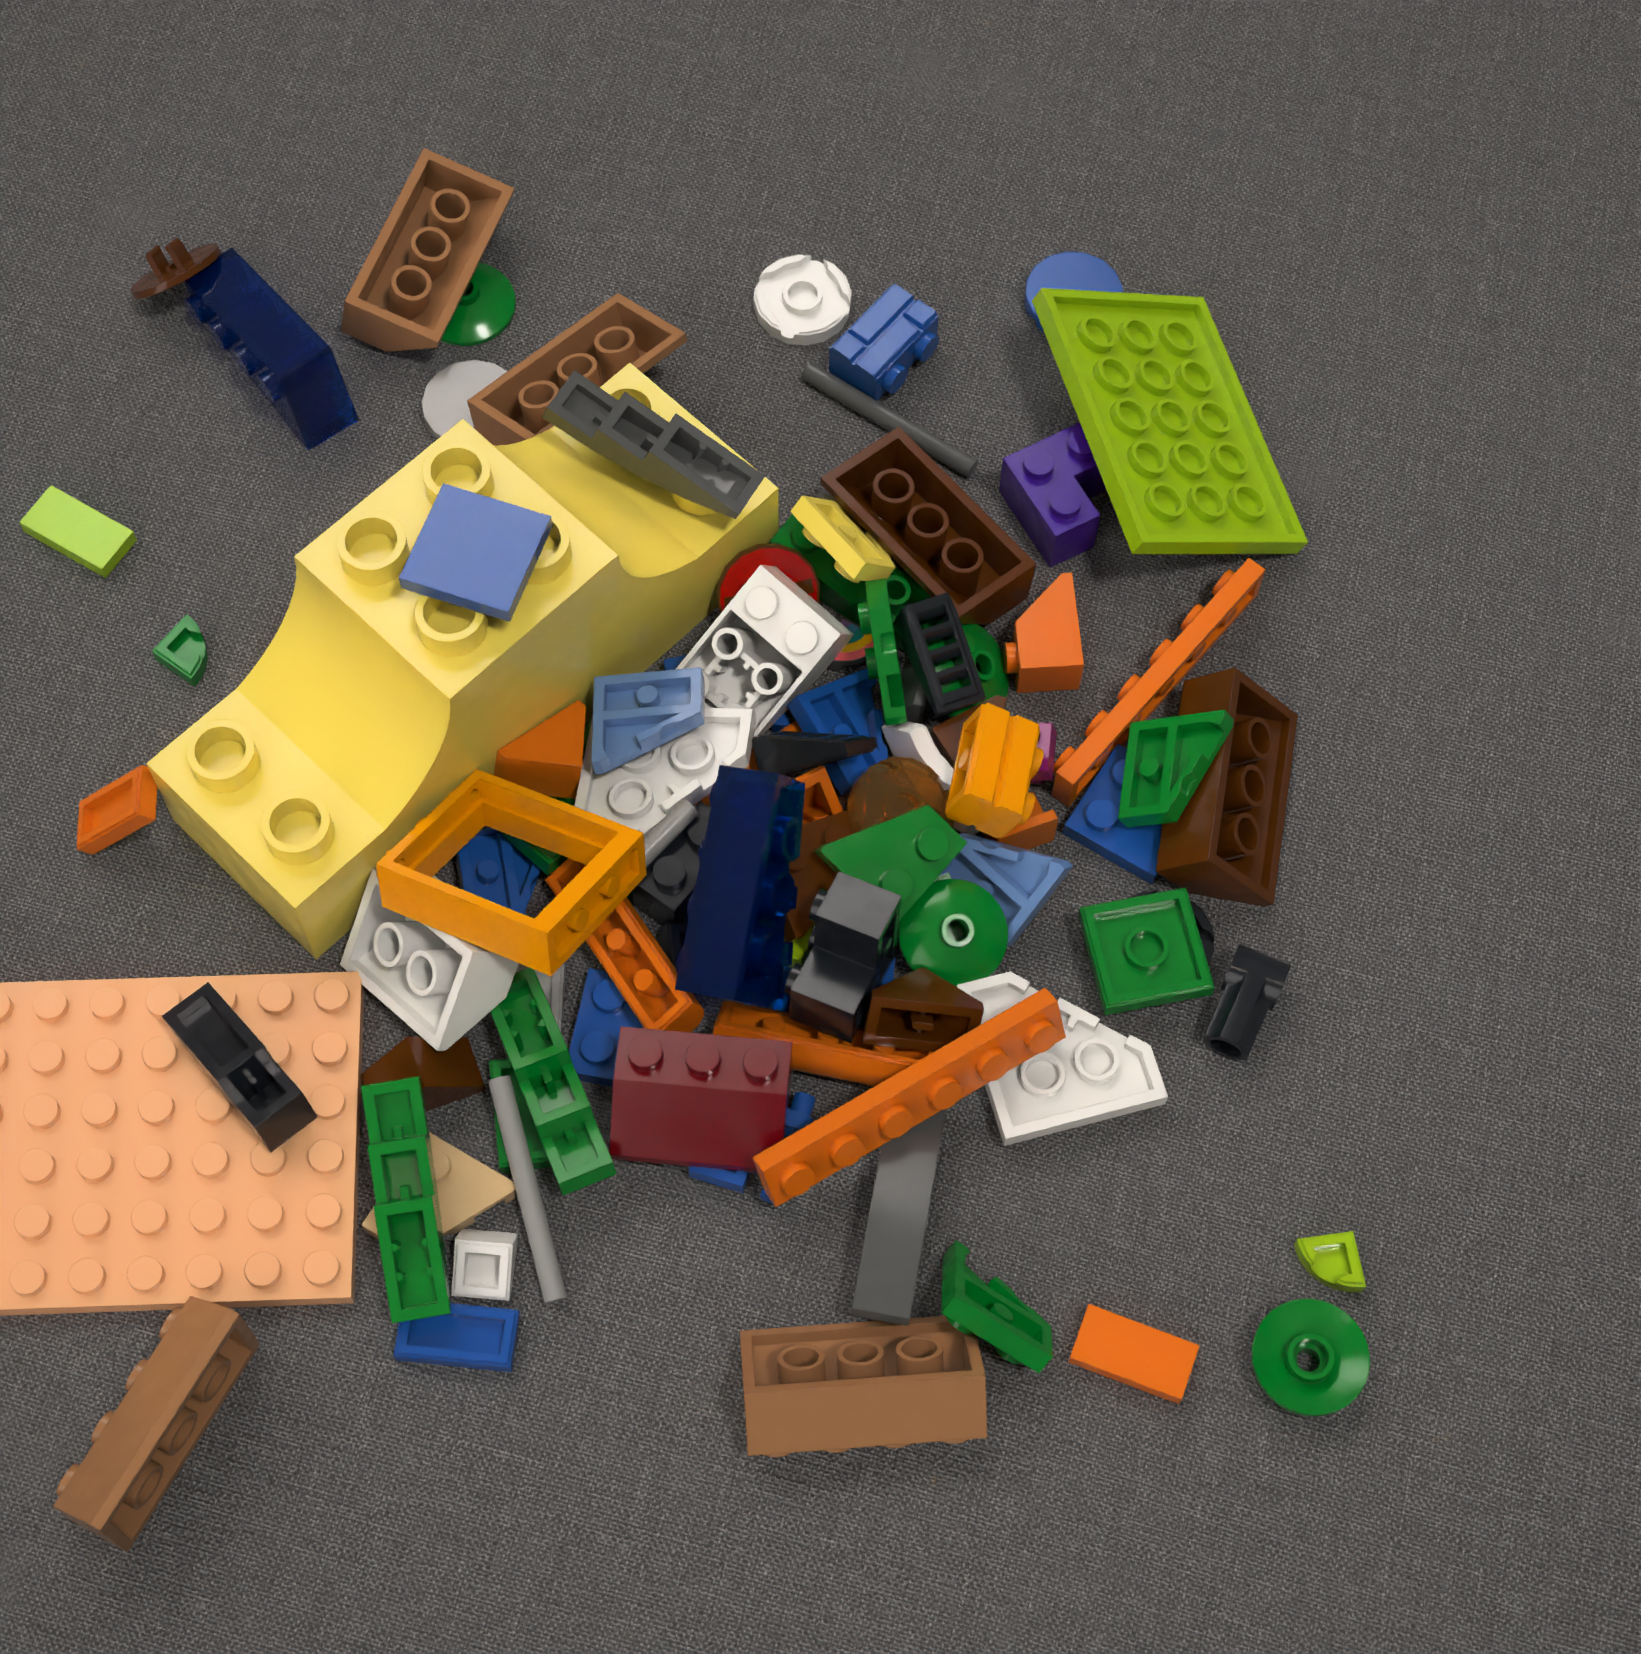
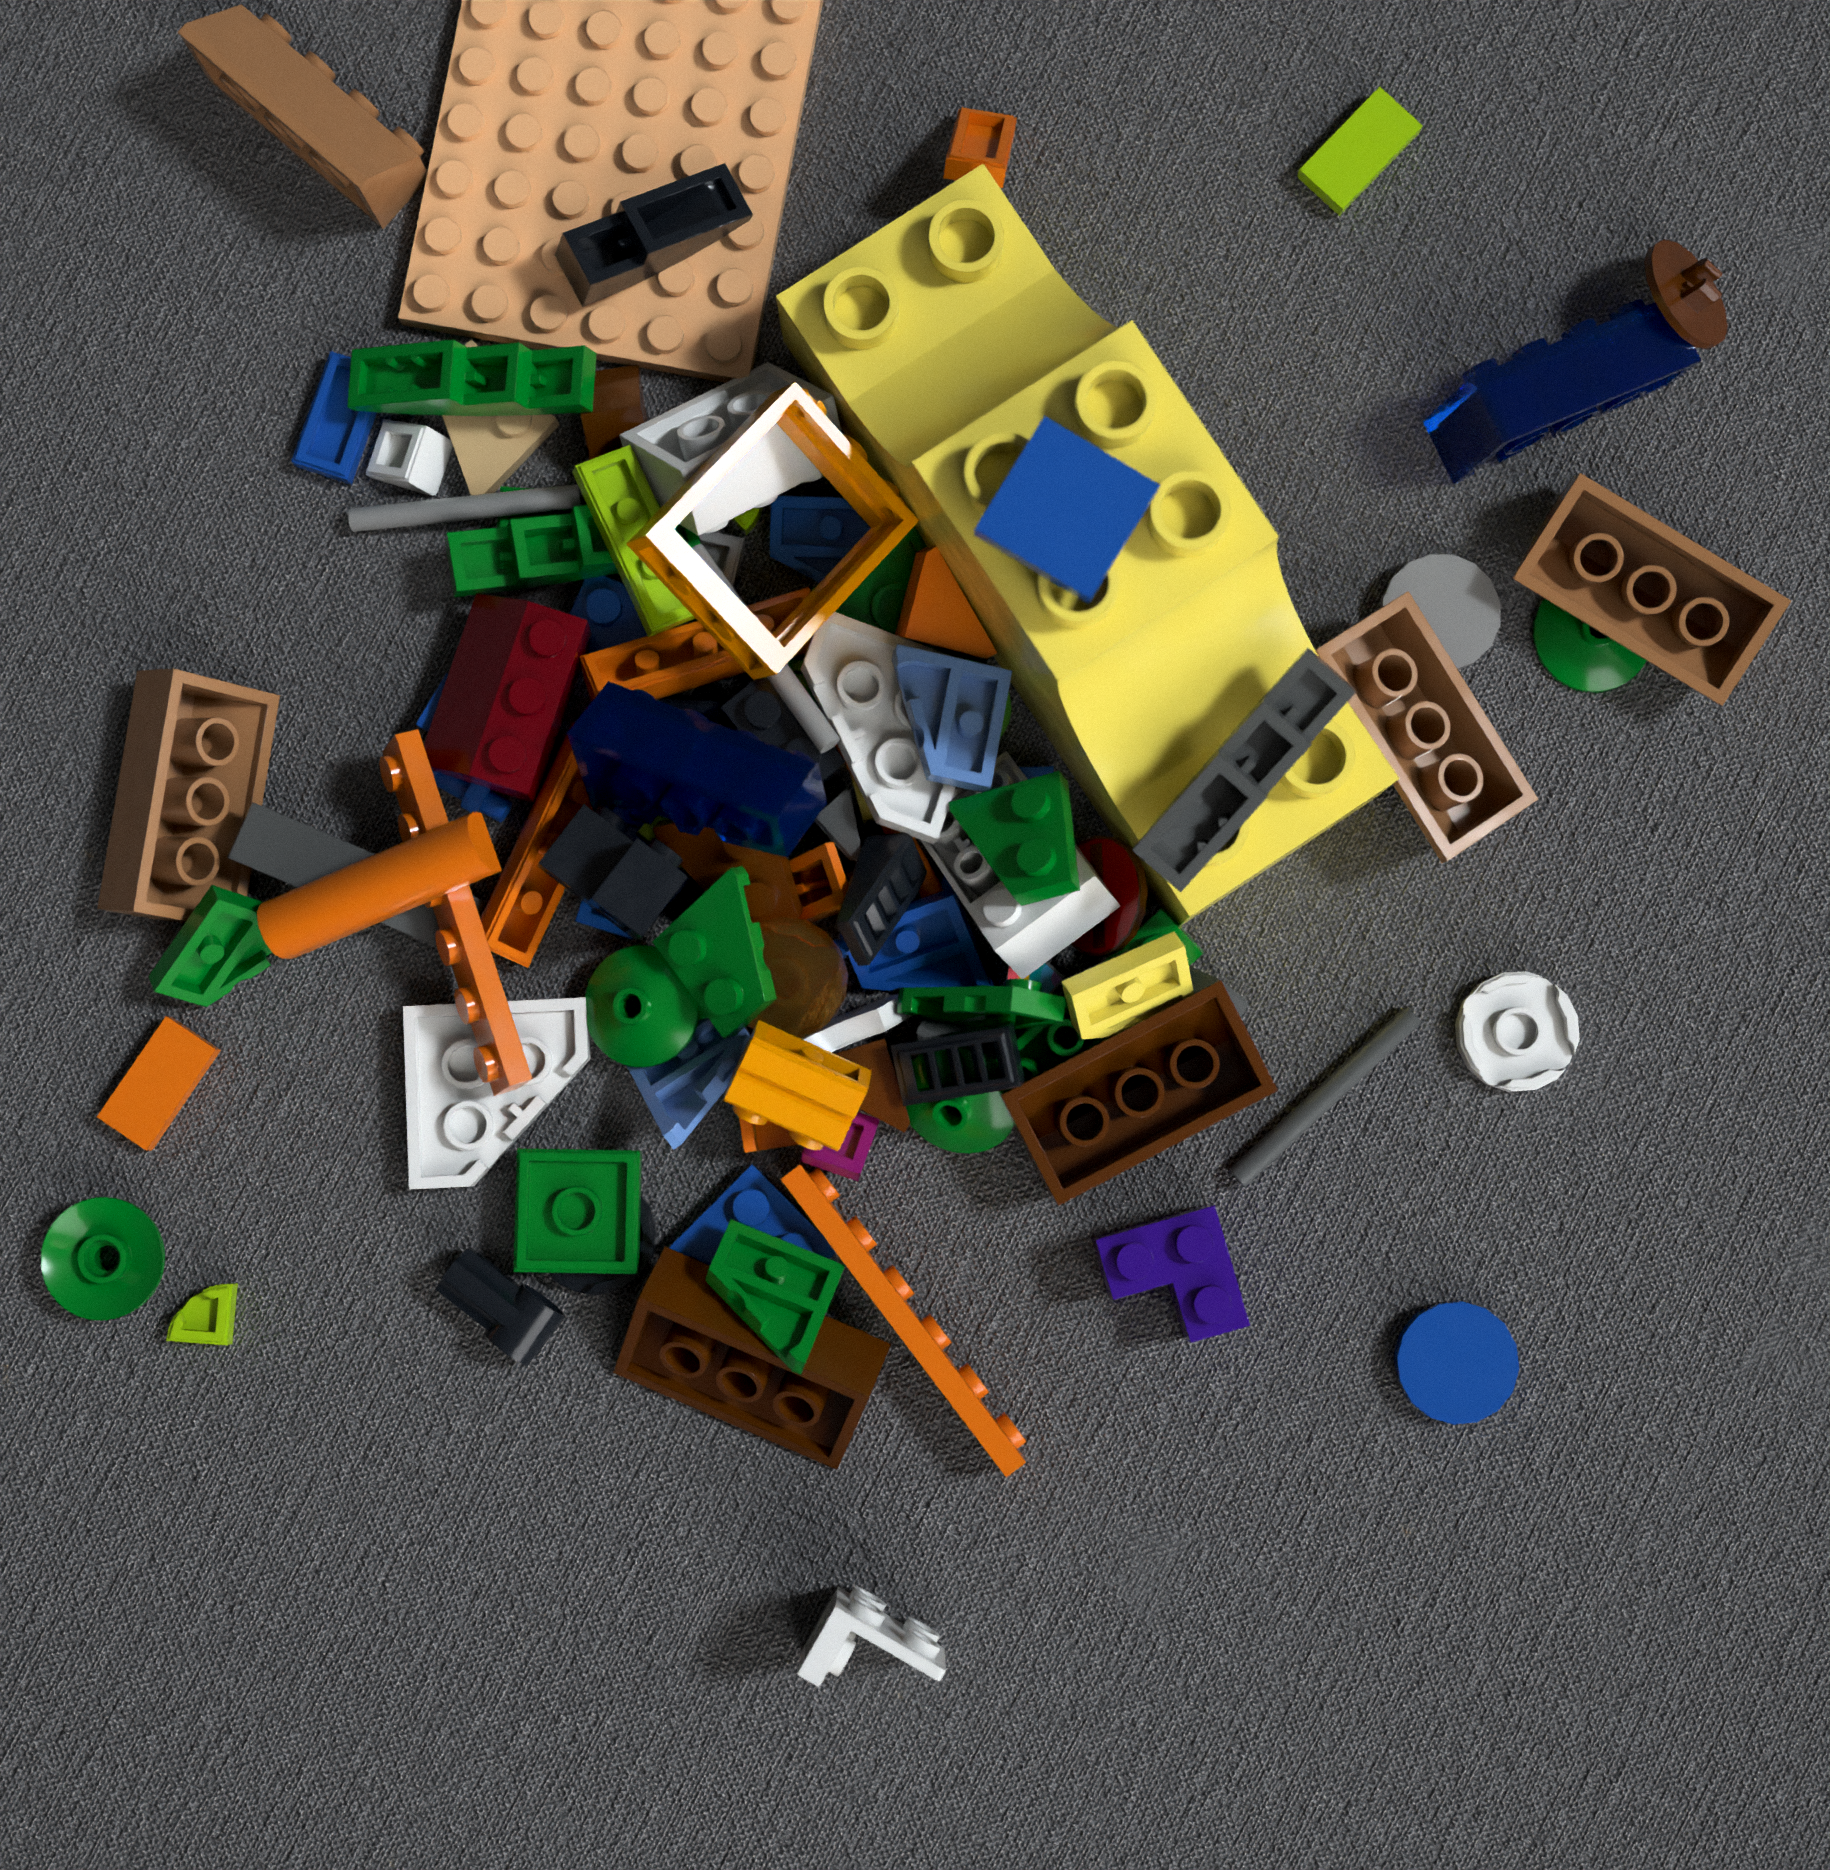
camera: 105 degrees right, 20 degrees up
(184, 651) = (1181, 249): green tile -> none
(534, 1010) = (620, 507): none -> lime tile
(737, 630) = (1025, 836): none -> green wing
(885, 343) = (1423, 1112): blue brick -> none
(906, 1155) = (378, 887): none -> orange brick
(919, 1013) = (552, 949): reddish brown slope -> none
(1047, 642) = (981, 1203): orange slope -> none
(1168, 424) = (1228, 1417): lime plate -> none
(1429, 667) = (863, 1614): none -> white bracket

